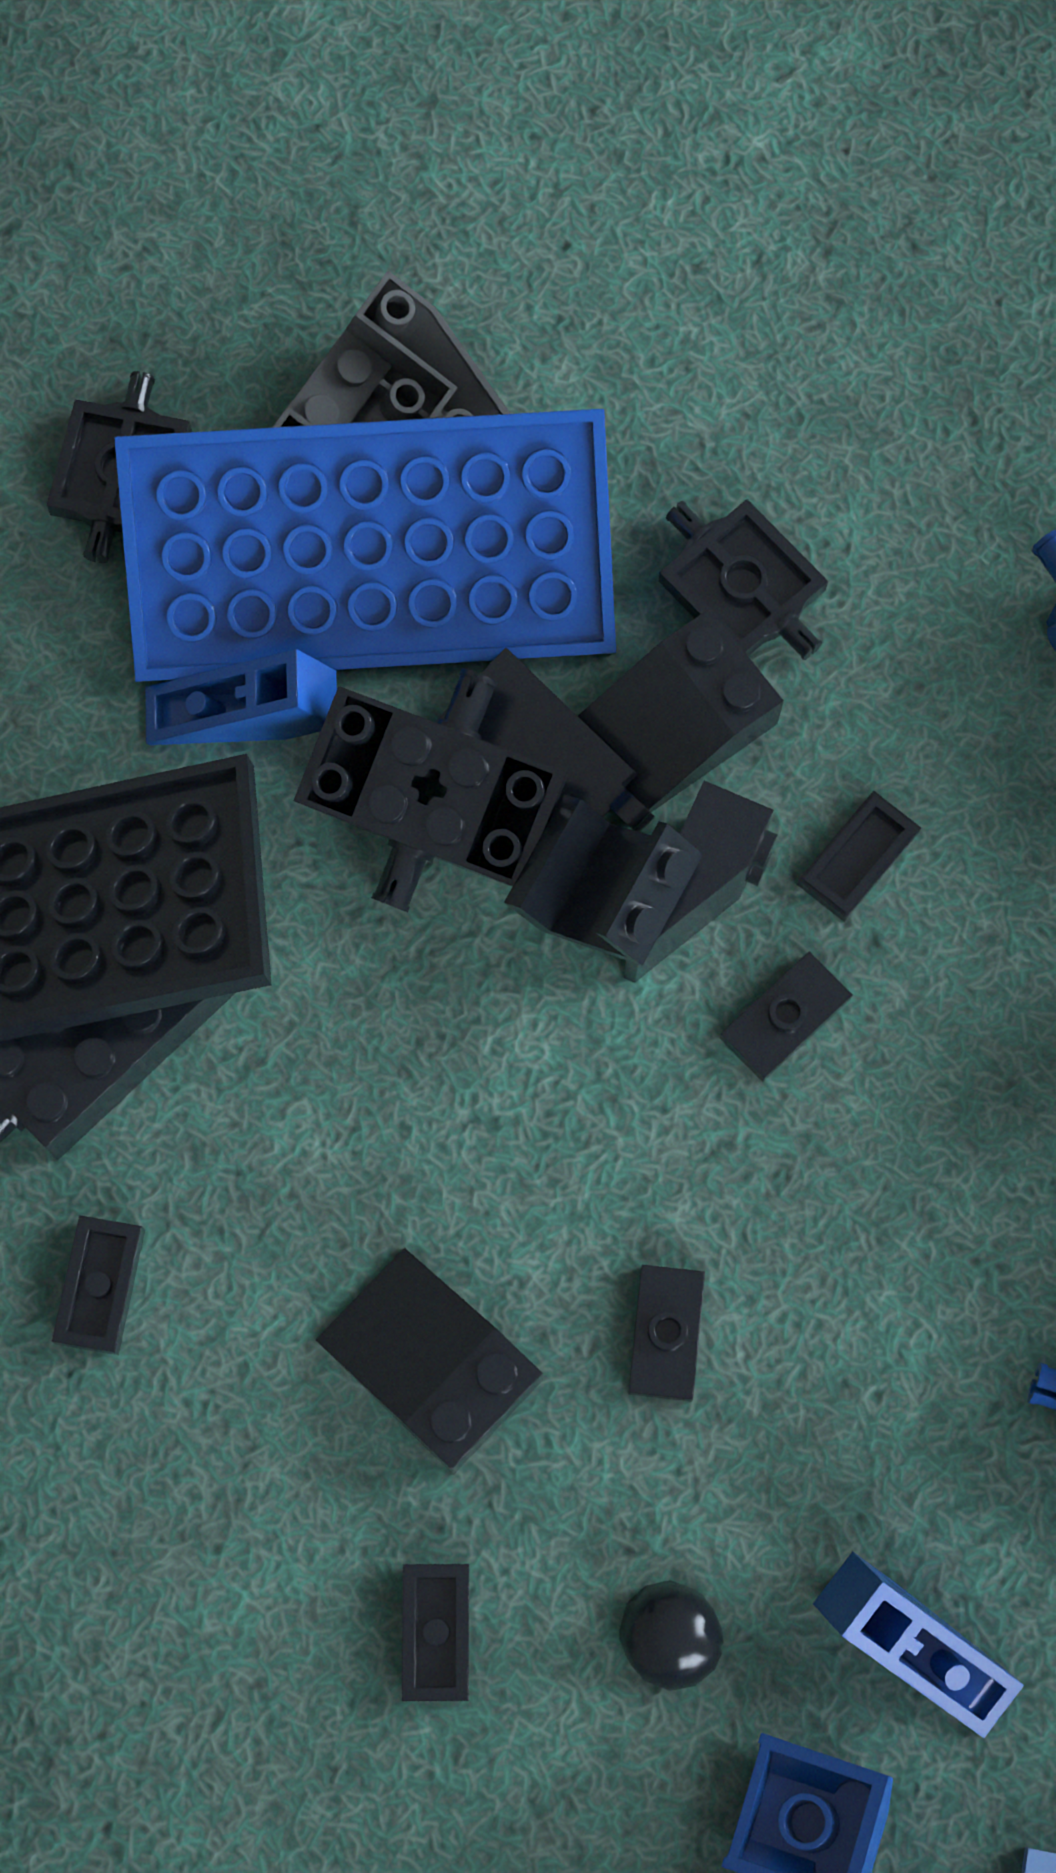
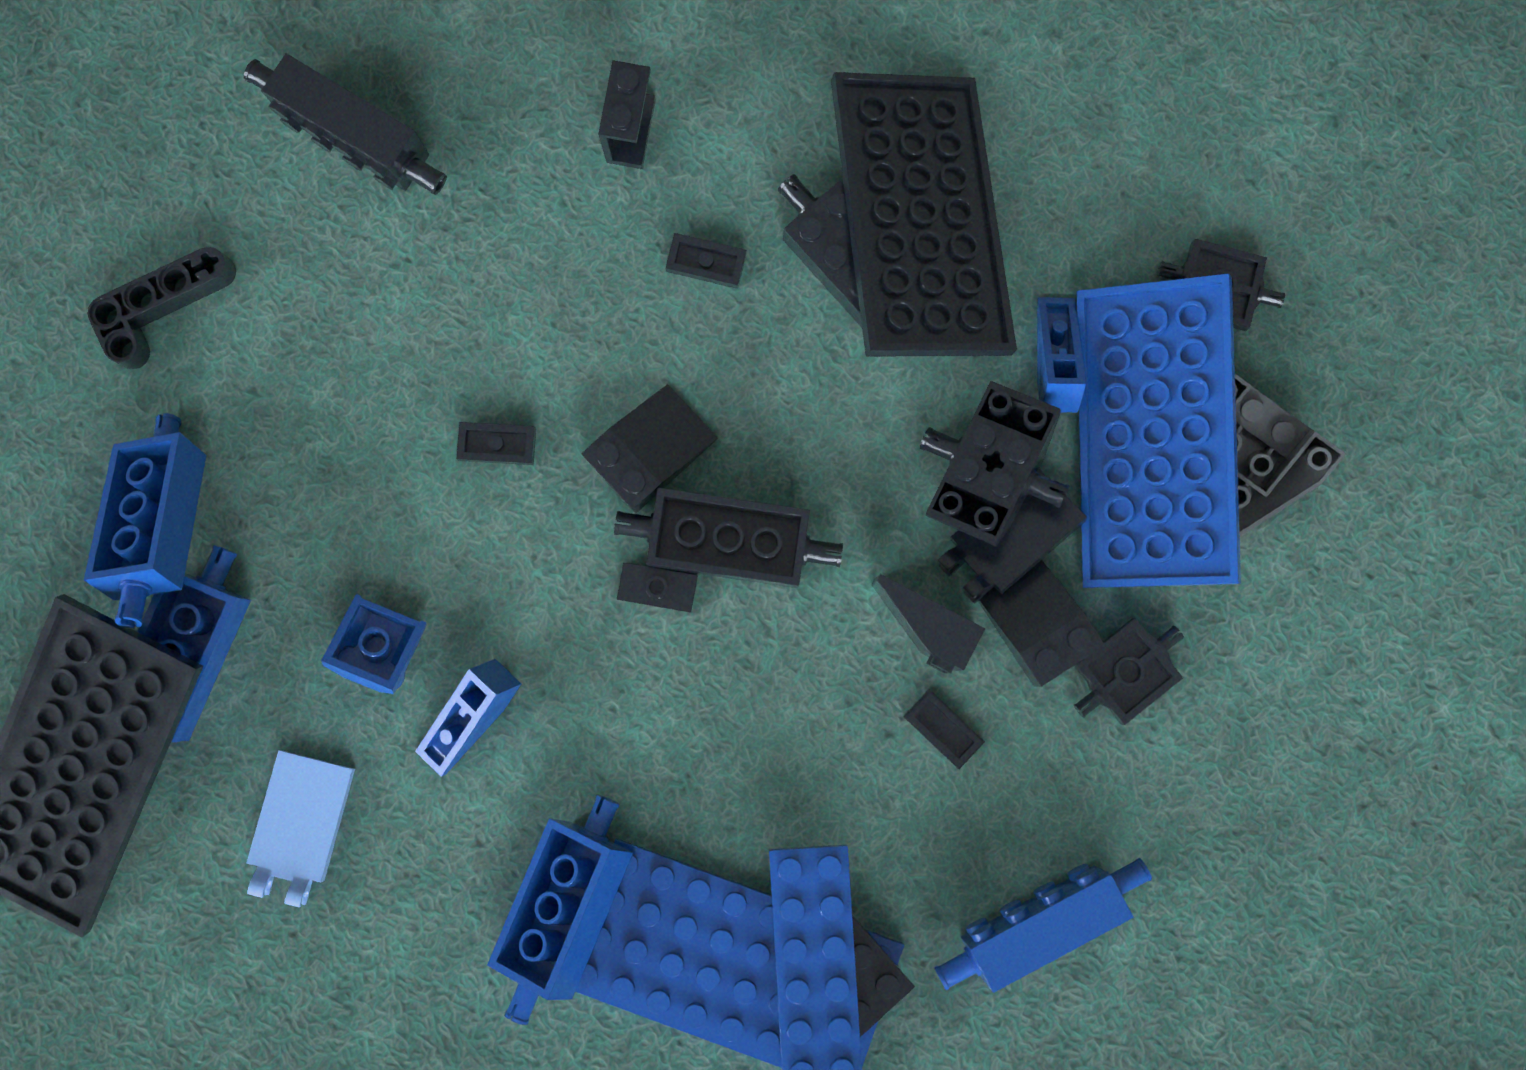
camera: 90 degrees right, 10 degrees up
(579, 1213) = (728, 538): none -> black brick
(603, 881) = (924, 562): black panel -> none
(671, 1635) = (485, 577): black hair -> none
(786, 1016) = (844, 674): black plate -> none

